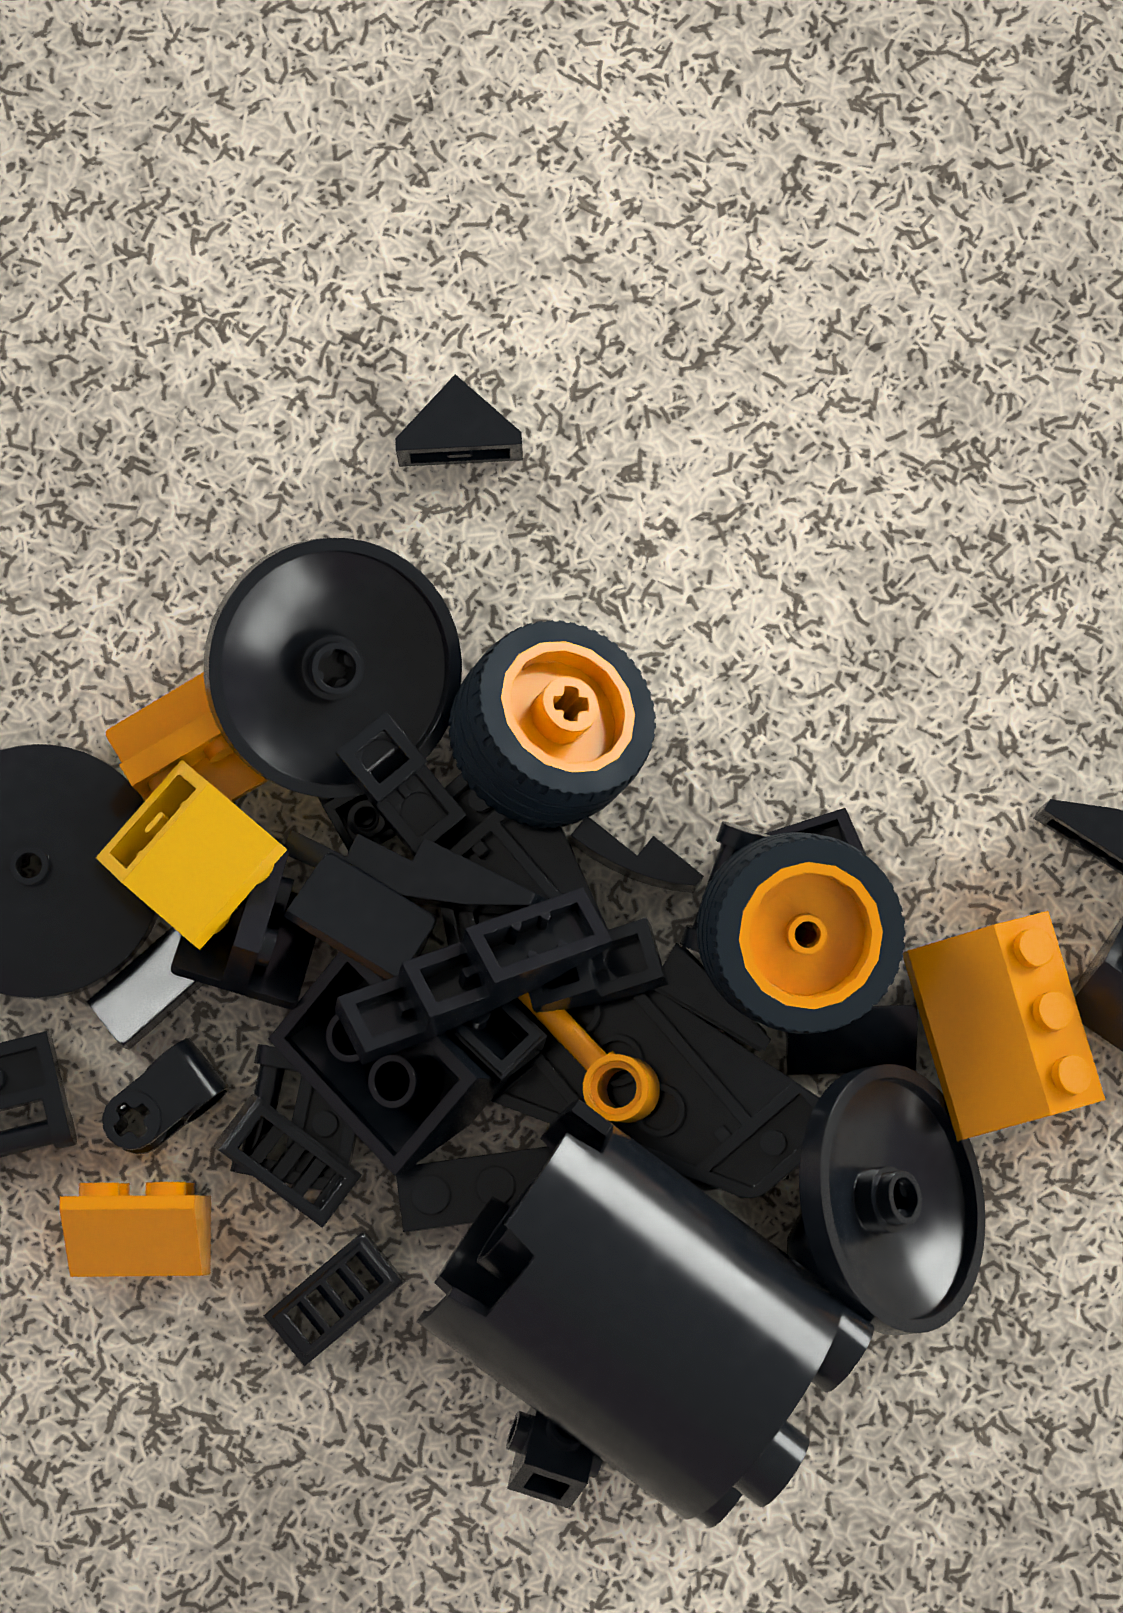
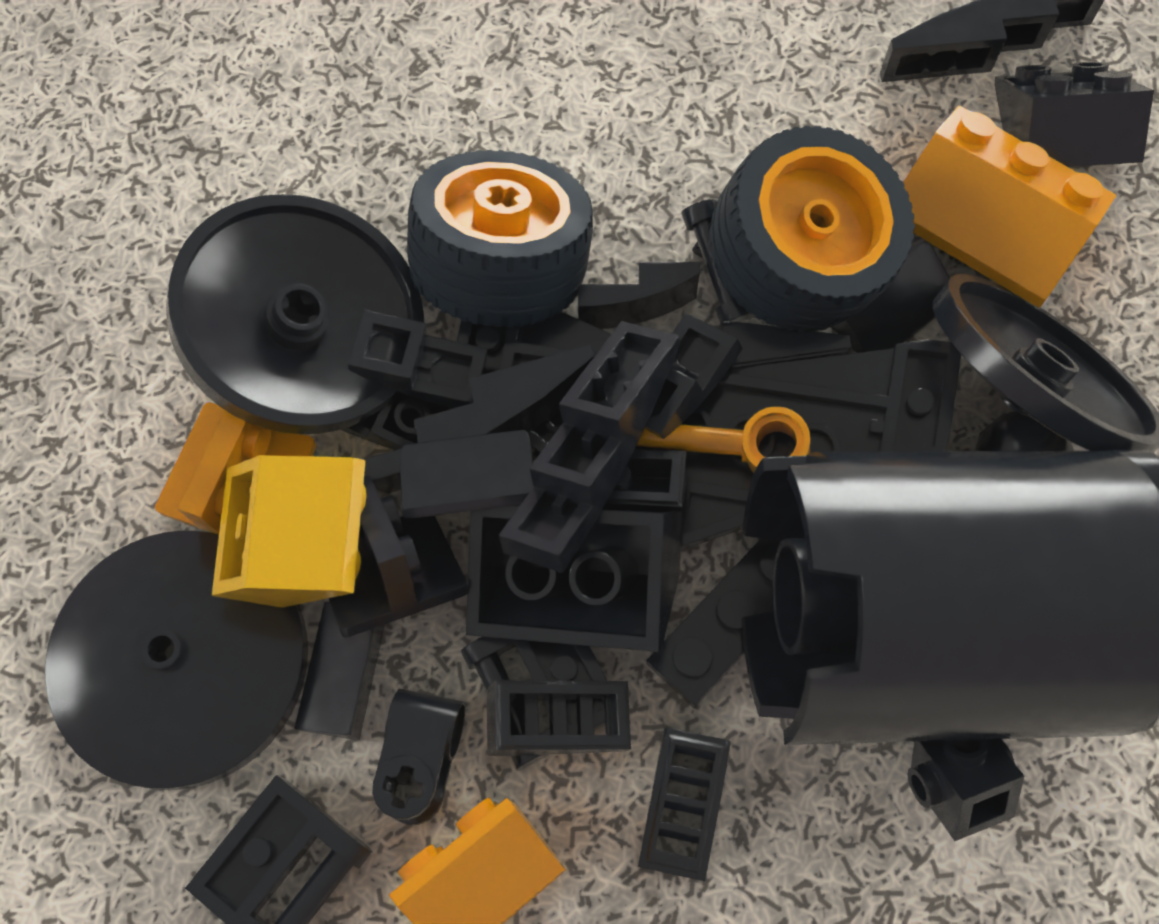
camera: 35 degrees left, 10 degrees down
(458, 430) = (271, 112): black slope -> none

